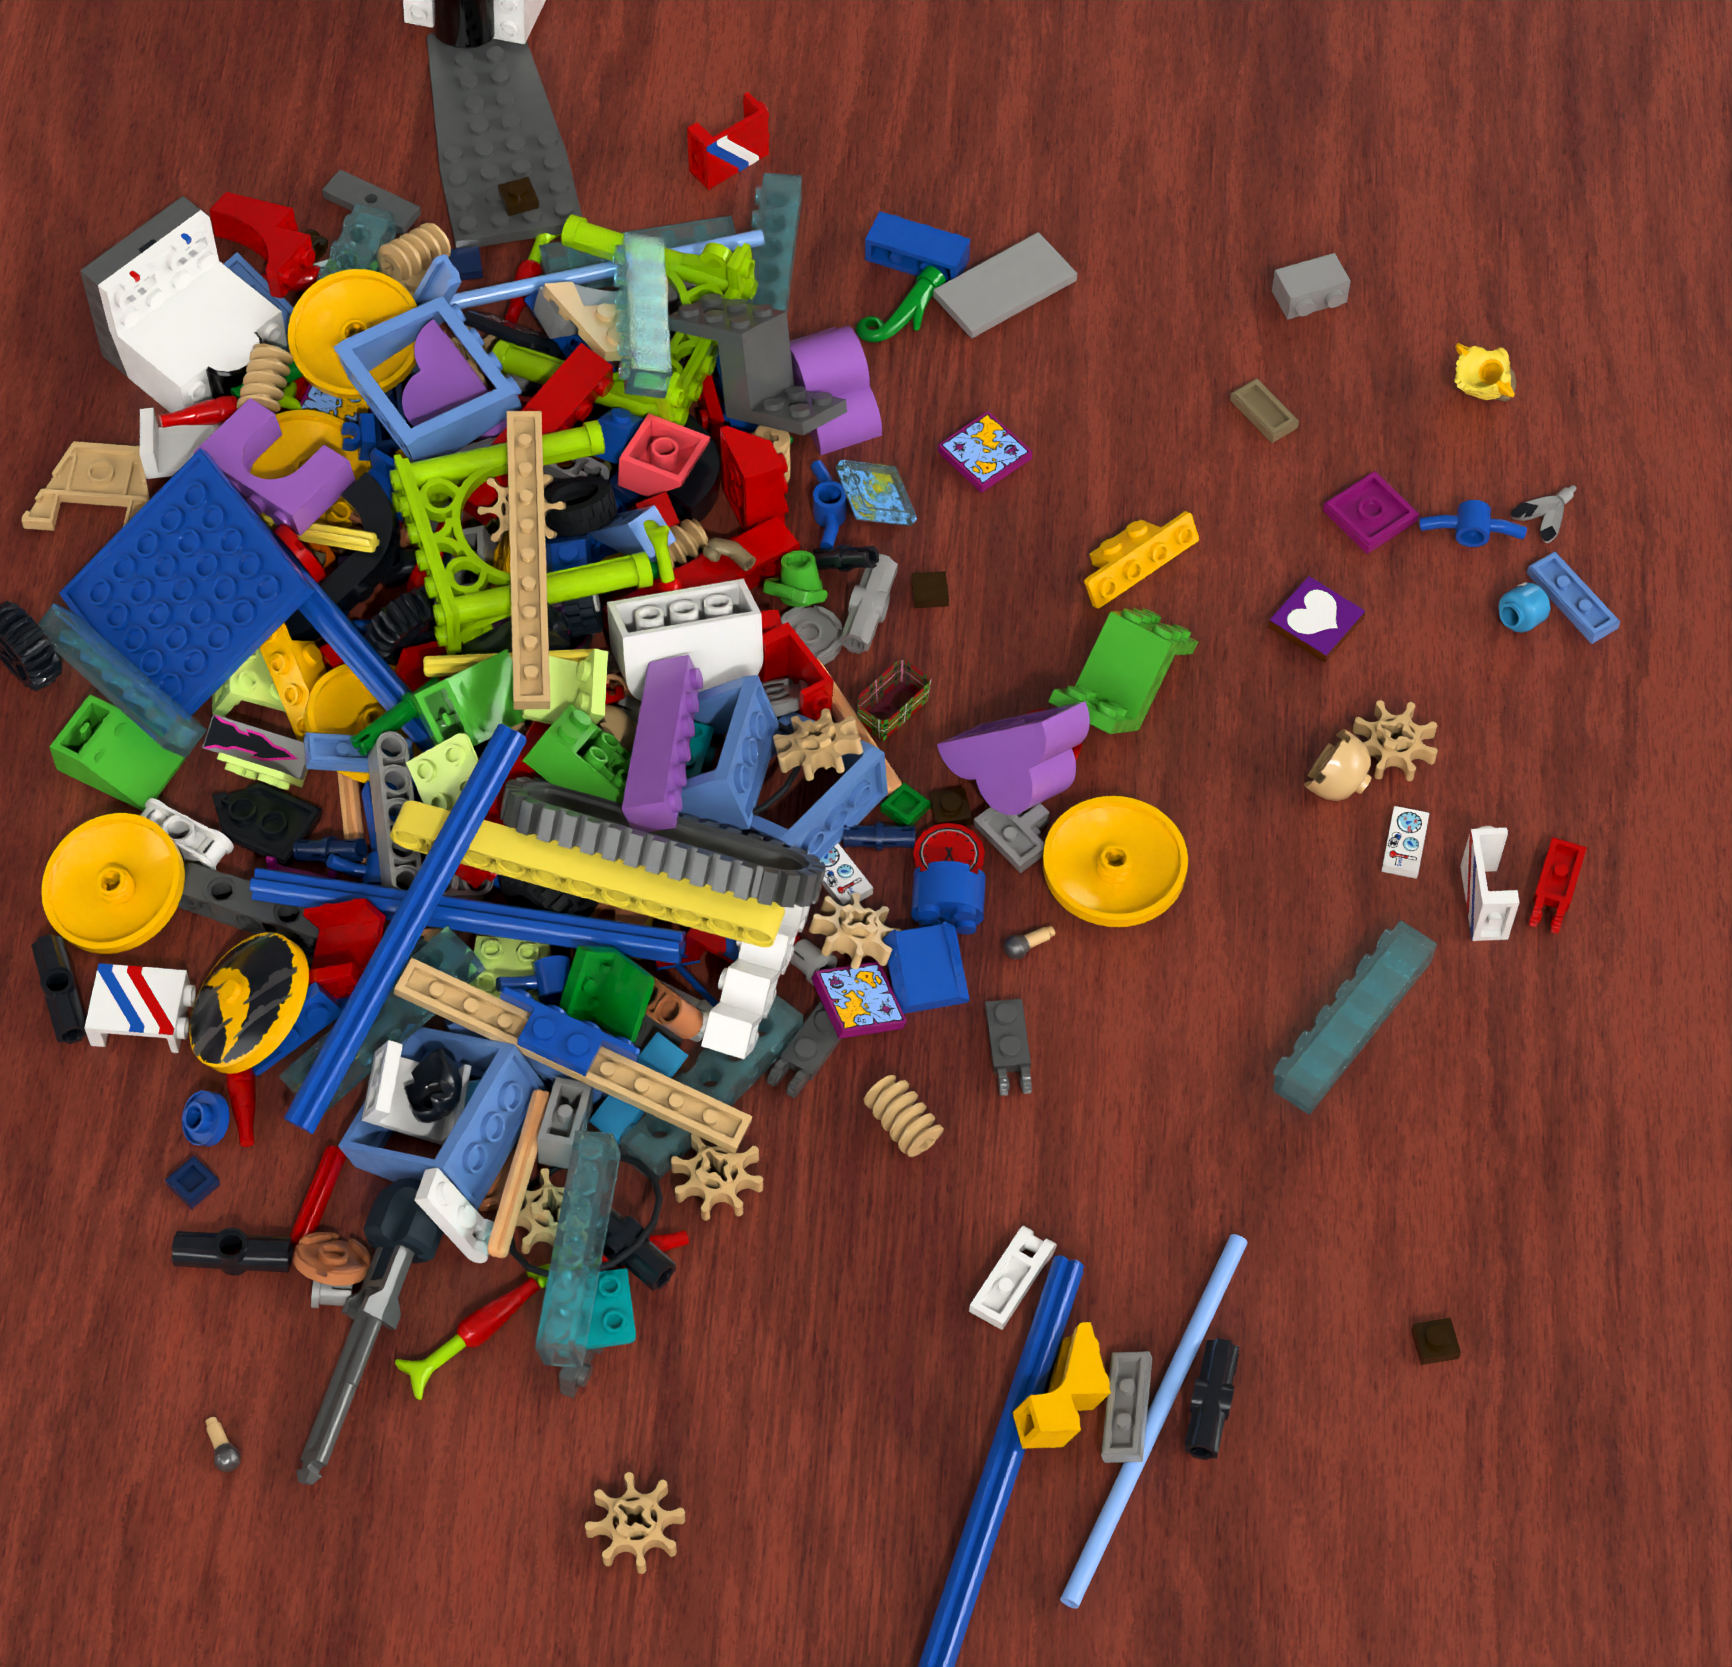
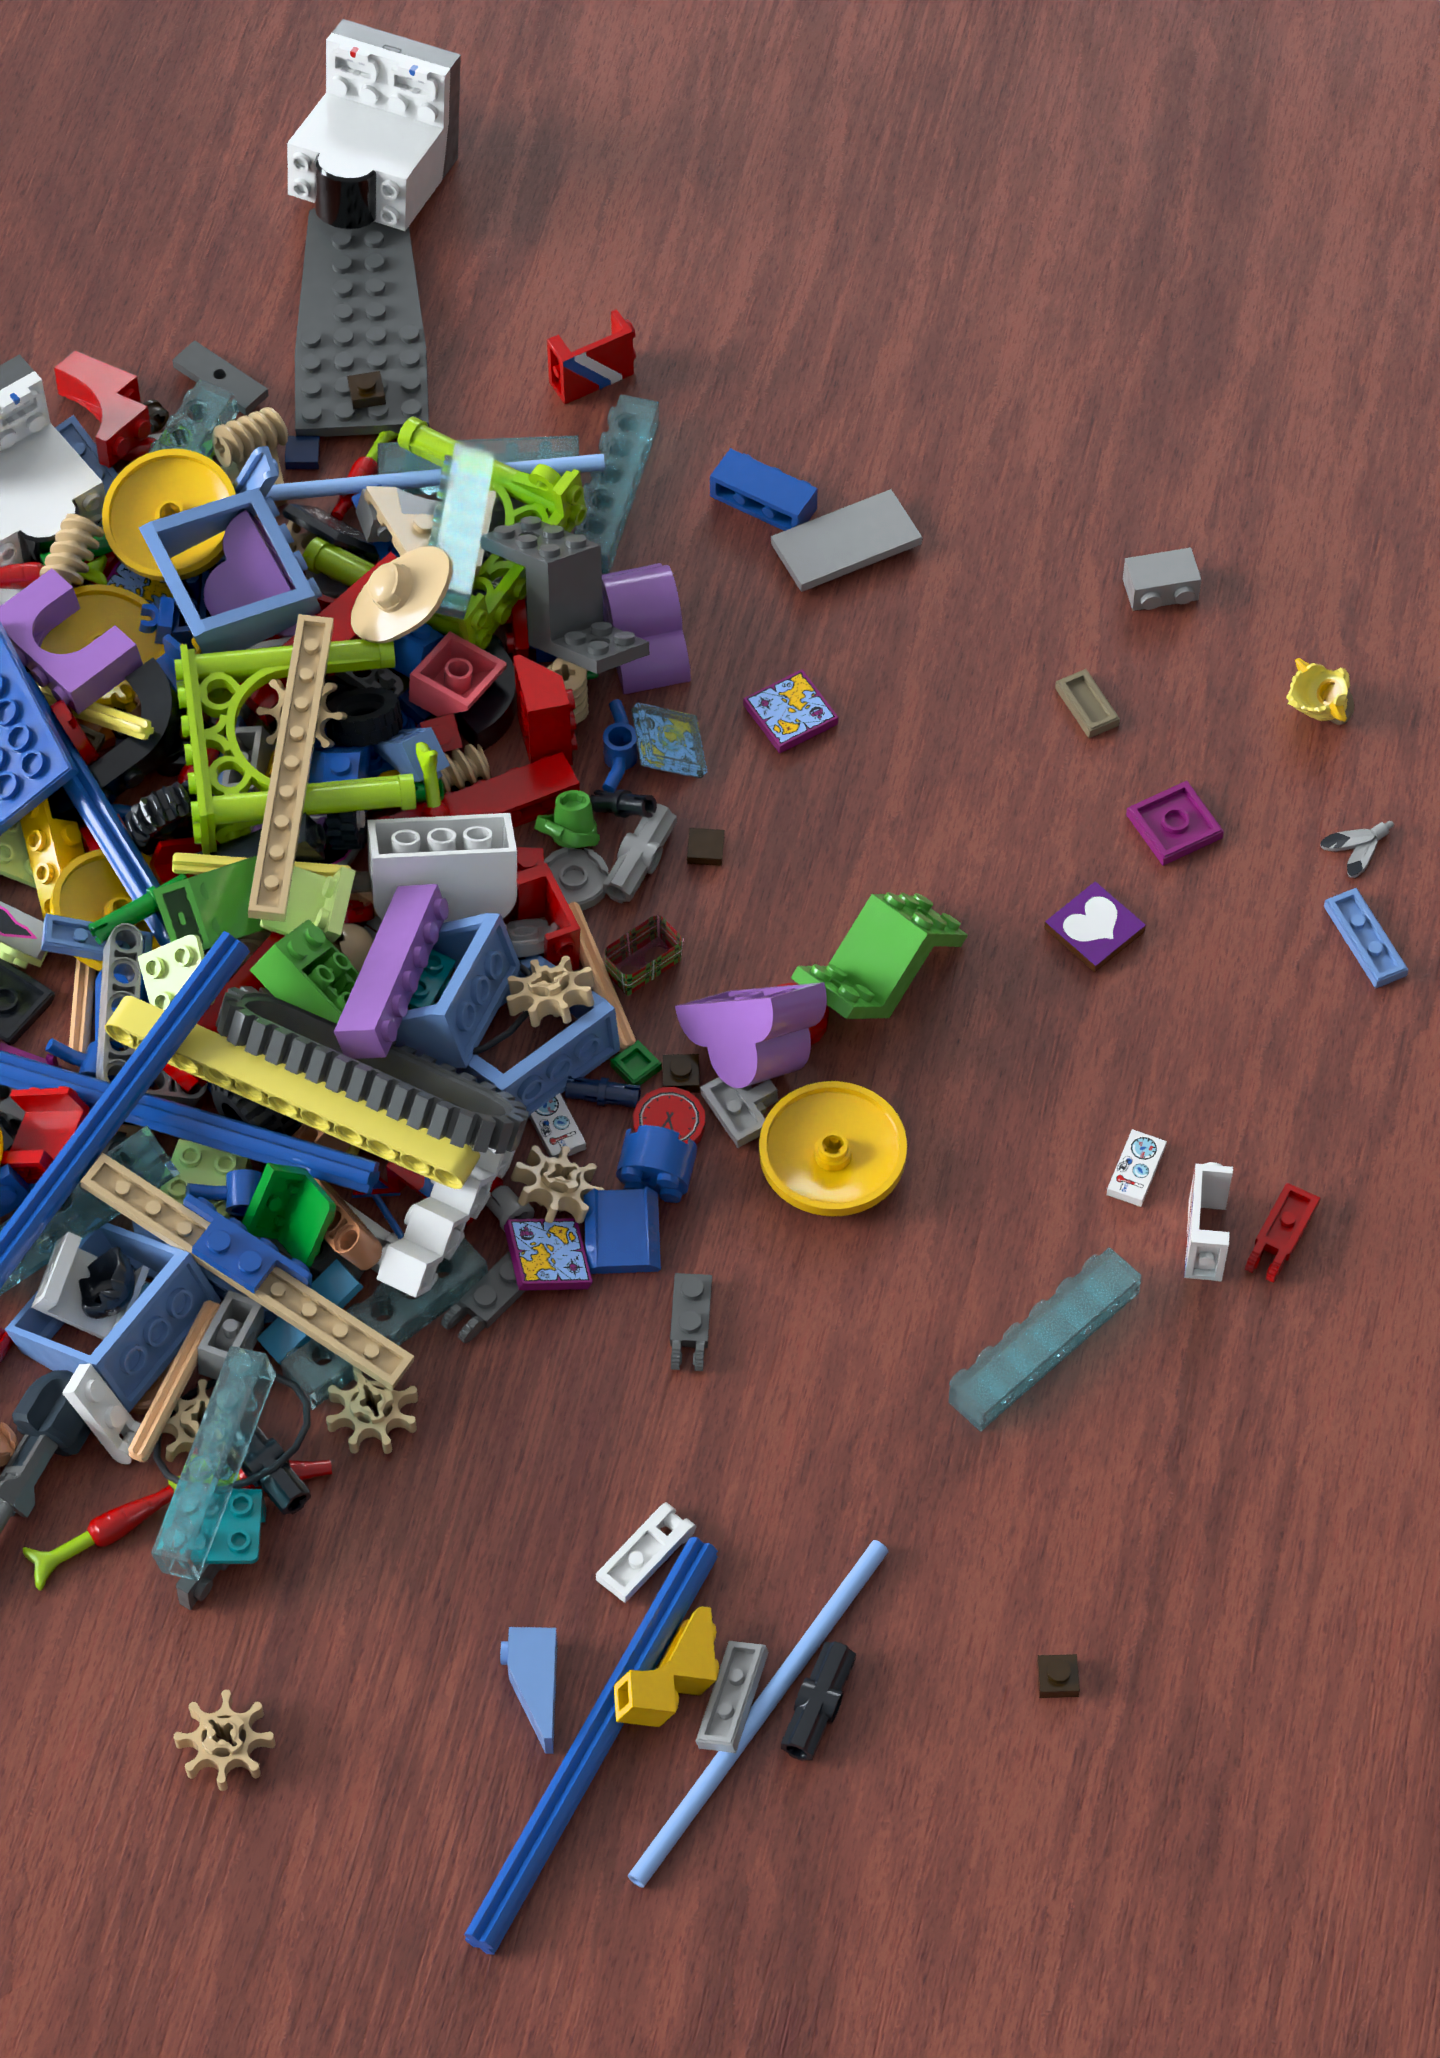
camera: 10 degrees right, 0 degrees up
(321, 849) = (42, 1032): dark blue pin -> none
(604, 381) = (402, 595): none -> tan hat
(731, 549) = (507, 780): dark tan arm -> none
(901, 1116) = (567, 1376): tan piece -> none
(911, 307) = (745, 552): green plant -> none
(928, 1416) = (532, 1672): none -> medium blue slope
(1018, 945) = (719, 1221): piece -> none
(1136, 554) = (922, 837): yellow bracket -> none
(1341, 769) = (1084, 1085): tan cylinder -> none
(1396, 740) = (1146, 1062): tan gear -> none
(1473, 524) = (1276, 849): blue piece -> none
(1524, 607) = (1310, 942): dark azure head -> none

